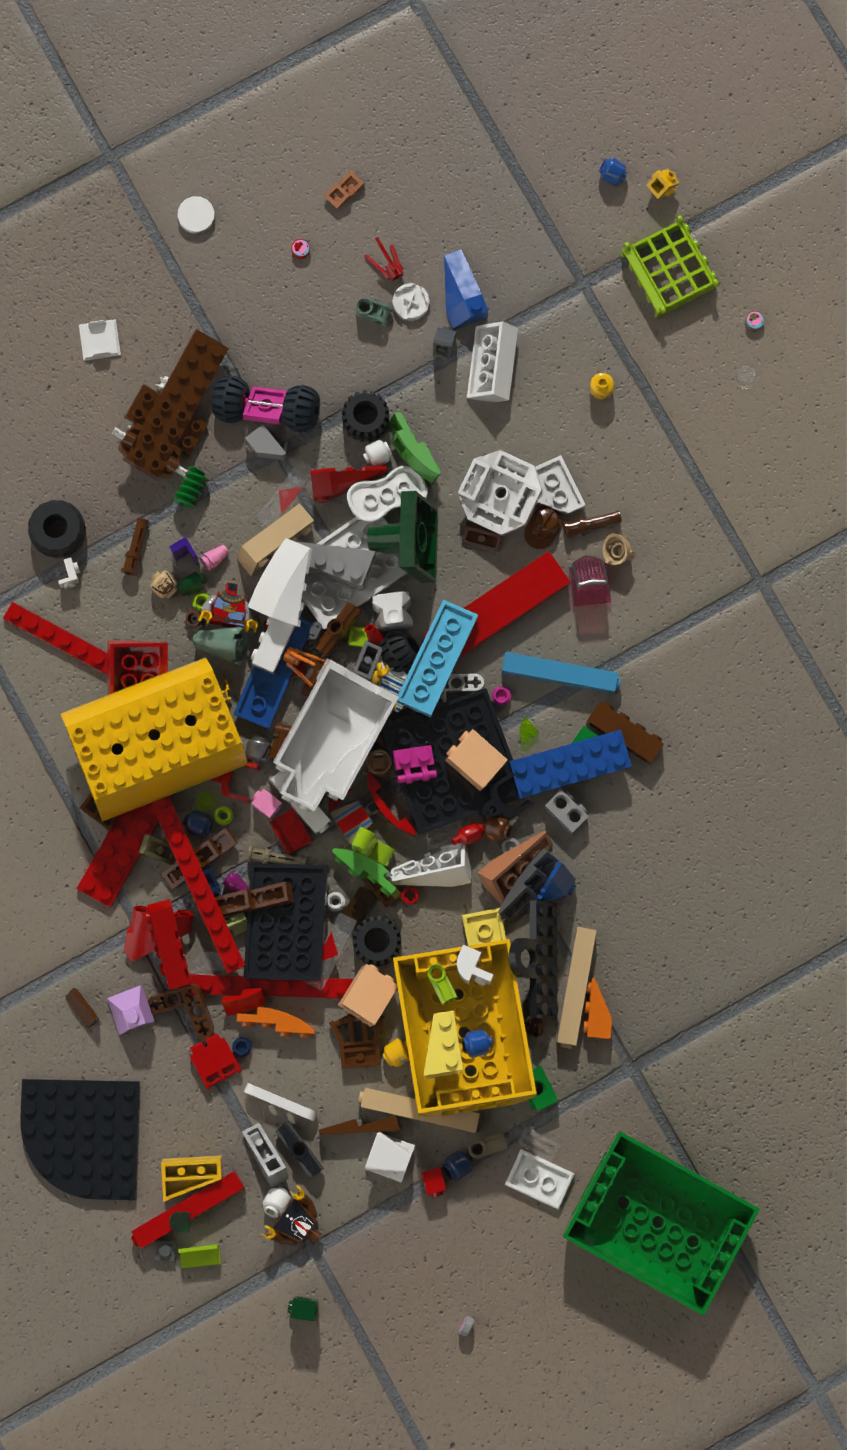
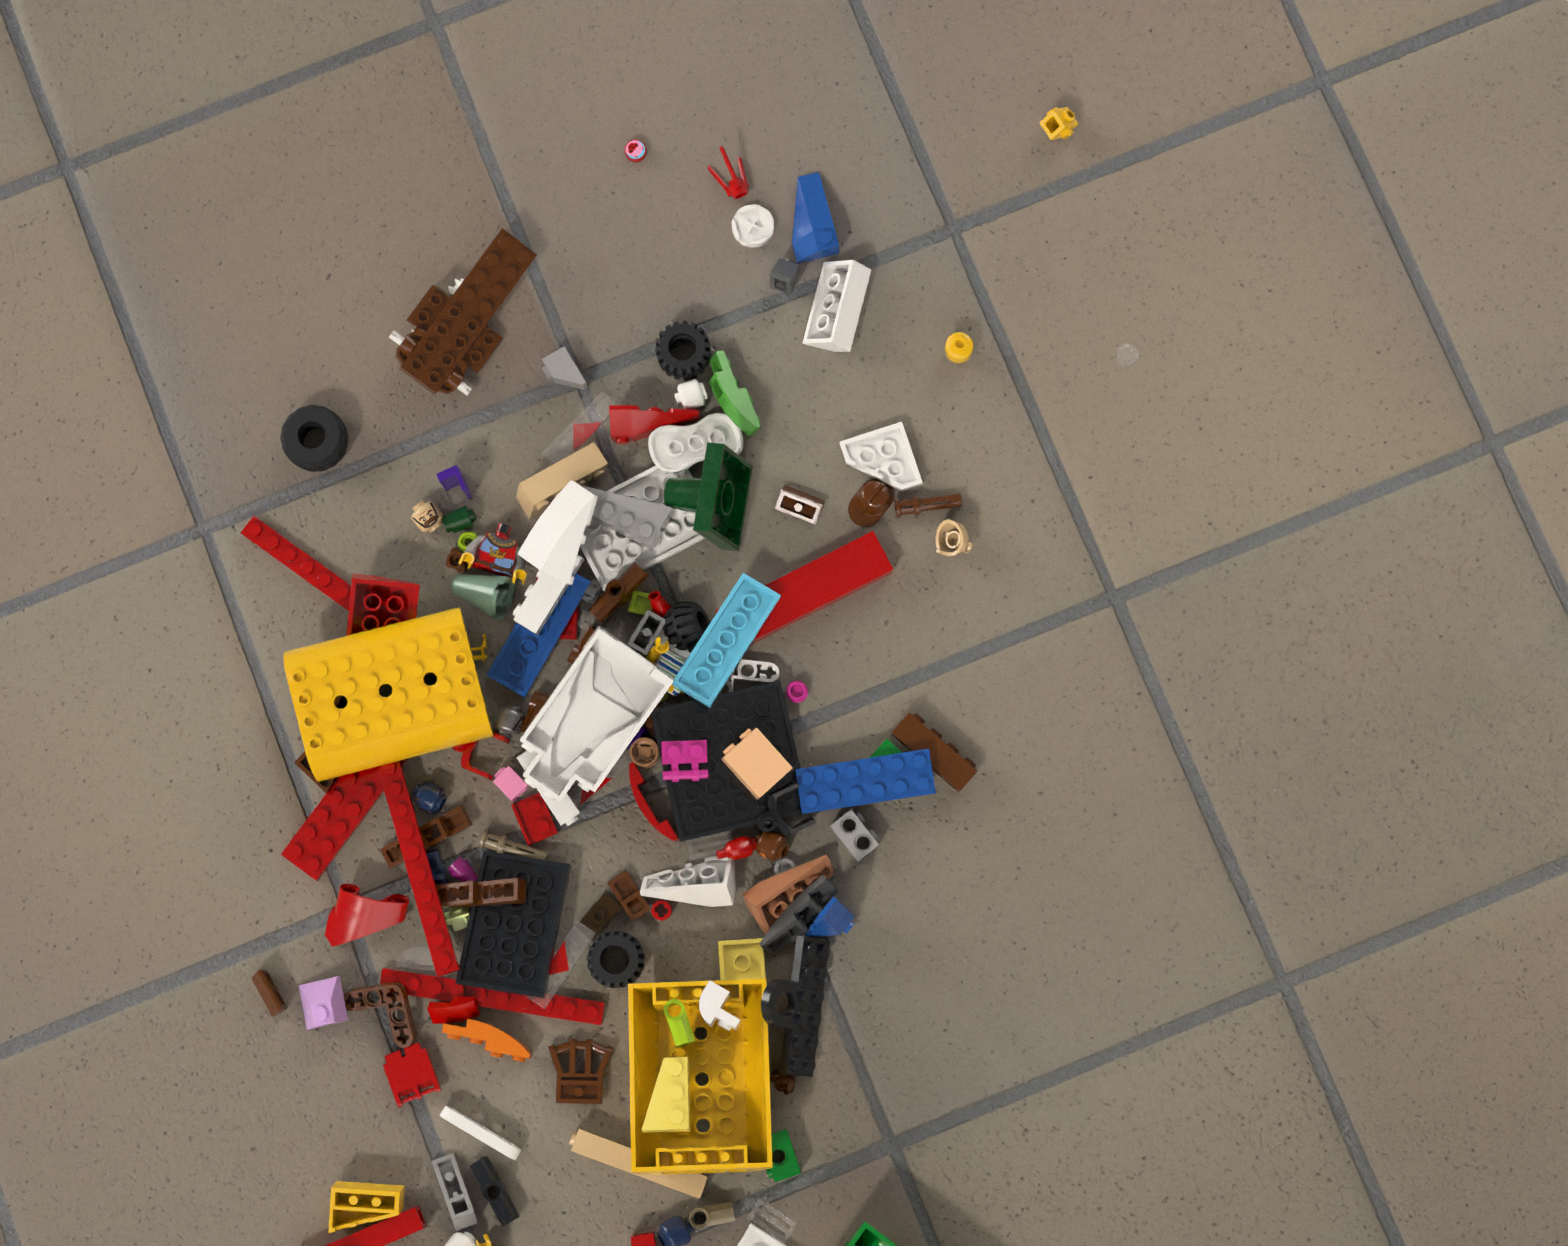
camera: 15 degrees right, 0 degrees up
(72, 570) = (326, 487): white bracket -> none
(83, 1135) = (250, 1141): black plate -> none
(99, 339) = (394, 228): white piece -> none
(133, 555) = (397, 482): reddish brown pin -> none
(156, 849) = (377, 821): olive slope -> none
(169, 944) = (374, 934): red wedge -> none
(190, 487) = (473, 409): green piece -> none
(196, 215) = (521, 98): white tile -> none
(204, 802) = (441, 772): clear neon green tile -> none
(213, 557) = (489, 492): bright pink cone -> none
(223, 809) = (453, 791): lime plate -> none
(241, 1047) = (445, 1062): dark blue plate -> none
(295, 656) = (565, 618): orange plant -> none
(297, 406) = (536, 317): black plate -> none
(340, 897) = (575, 899): white plate -> none
(344, 190) = (694, 90): nougat slope -> none
(351, 1126) = (598, 1175): reddish brown slope -> none
(352, 817) = (608, 815): torso -> none
(362, 865) = (613, 872): bright green slope -> none
(368, 845) = (623, 850): lime beam -> none
(368, 994) = (597, 1021): light nougat brick -> none
(375, 311) = (709, 233): sand green piece -> none
(389, 1157) = (596, 1213): white piece -> none
(392, 611) = (683, 579): white piece -> none
(396, 1053) = (619, 1092): yellow head -> none
(477, 1043) = (710, 1099): blue head -> none
(484, 481) = (807, 444): white piece -> none
(527, 730) = (822, 735): clear neon green tile -> none
(560, 673) = (868, 673): dark azure brick -> none
(576, 987) = (839, 1043): tan brick -> none
(589, 581) = (916, 571): clear pink piece -> none
(599, 1018) = (861, 1082): orange slope -> none
(613, 171) = (1004, 102): blue head -> none
(645, 278) = (1025, 232): lime window -> none
(754, 320) = (1145, 292): tile -> none

